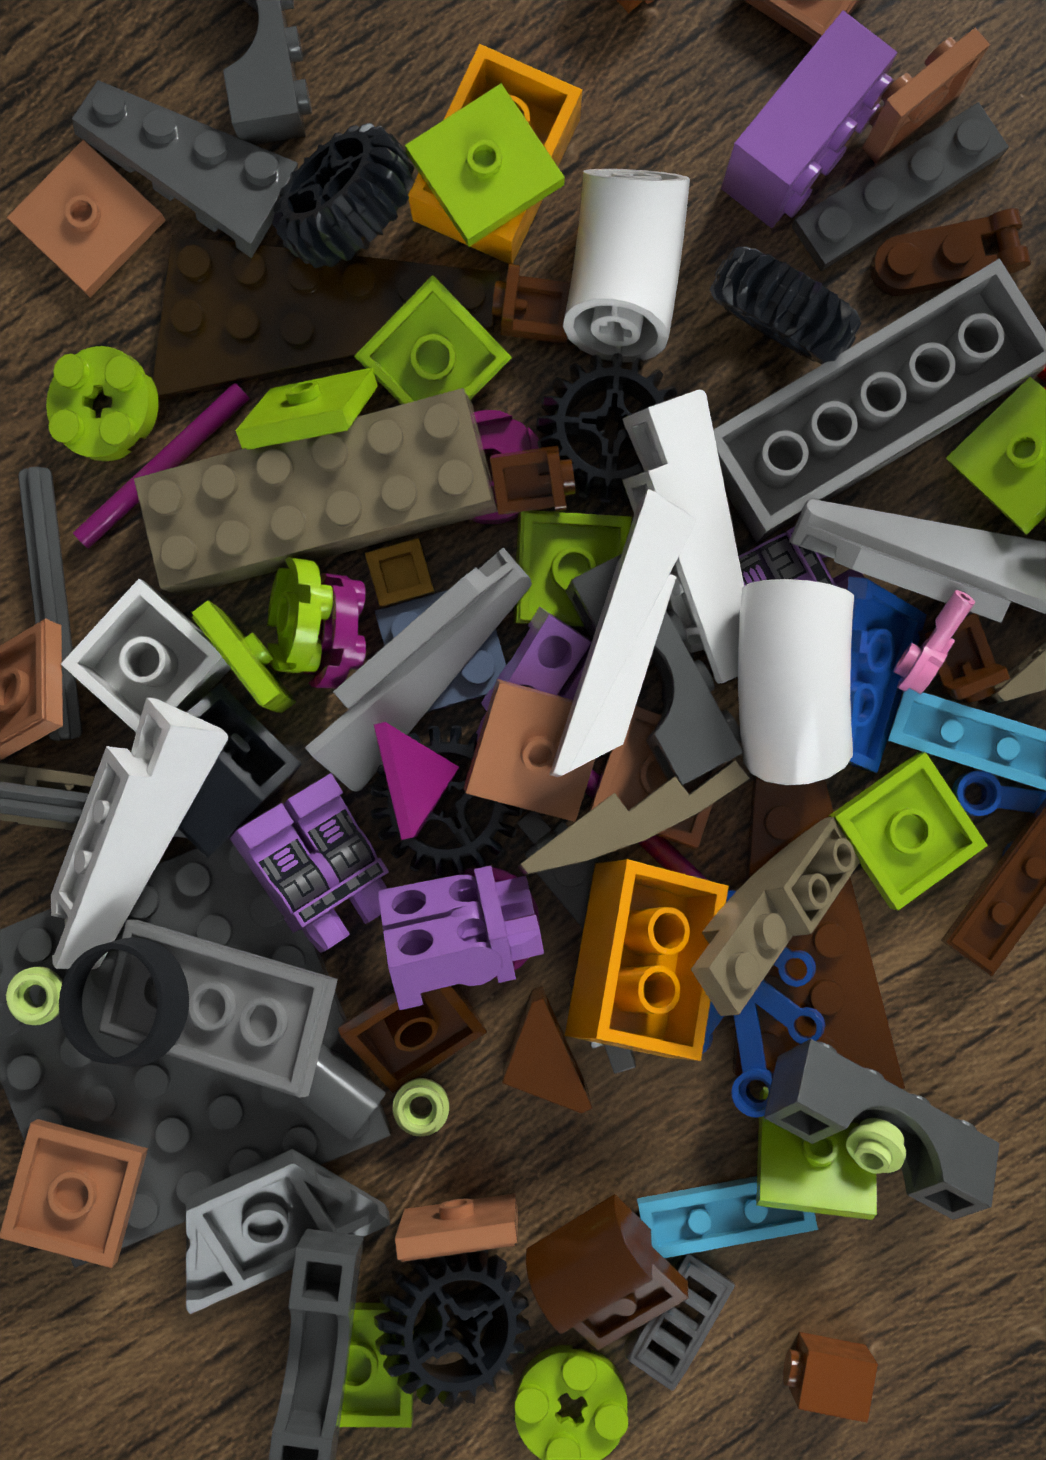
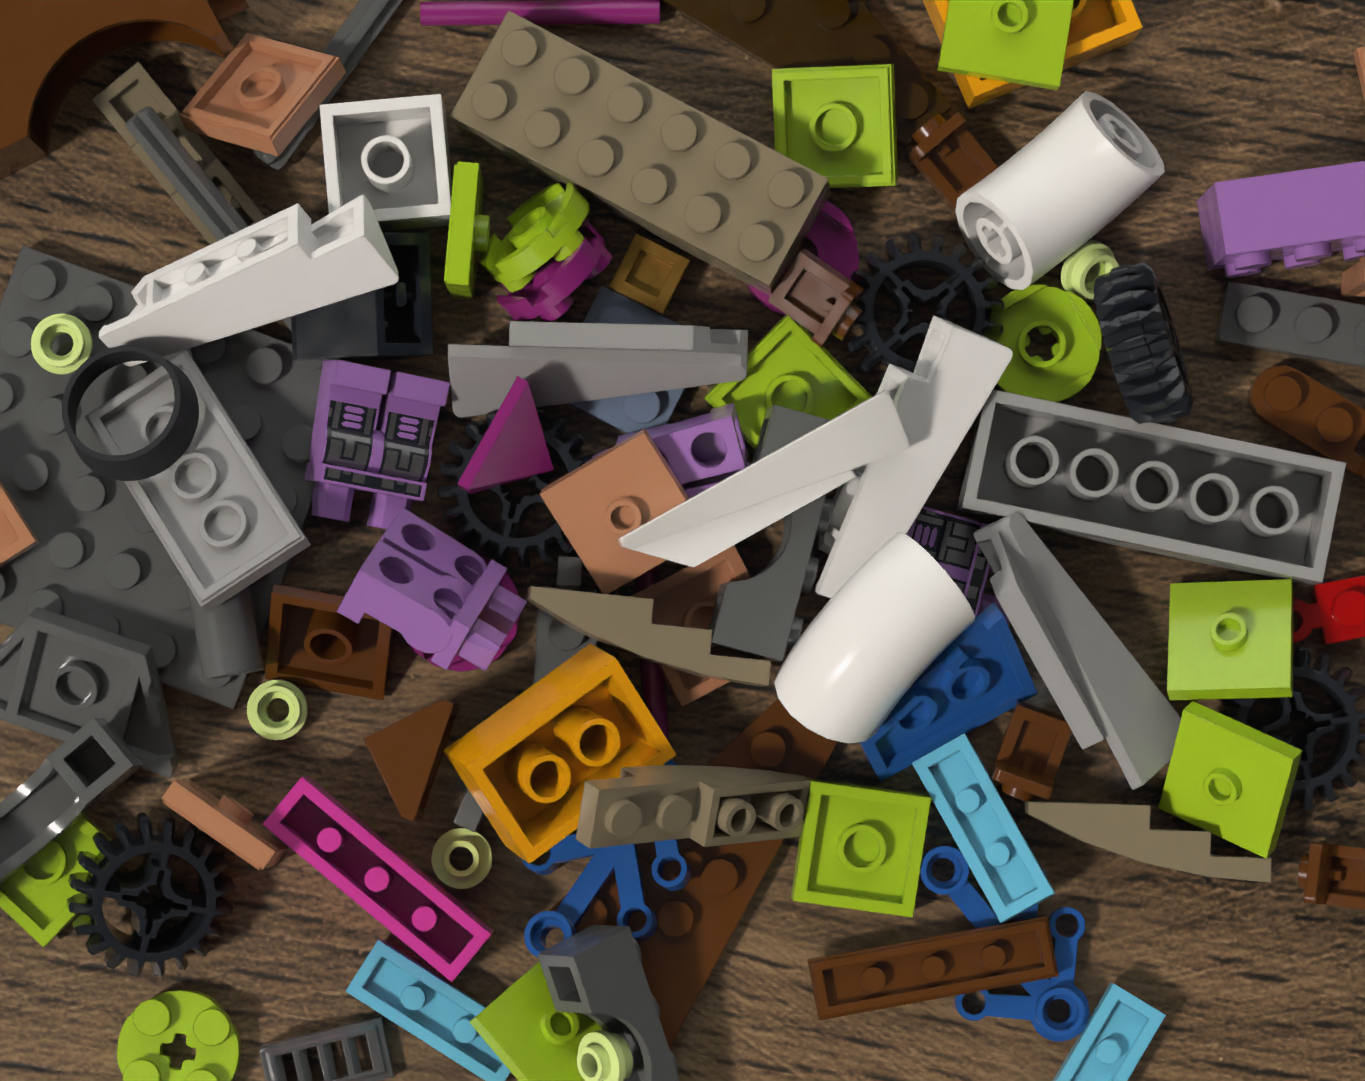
camera: 30 degrees right, 0 degrees up
(307, 409) = (695, 80): lime plate -> none
(601, 1162) = (378, 877): none -> dark pink brick
(602, 1274) = (300, 967): reddish brown brick -> none
(629, 1079) = (481, 858): none -> yellowish green plate
(693, 298) = (1085, 266): none -> yellowish green plate
(719, 345) = (1073, 355): none -> lime plate
(922, 663) = (990, 724): bright pink plate -> none

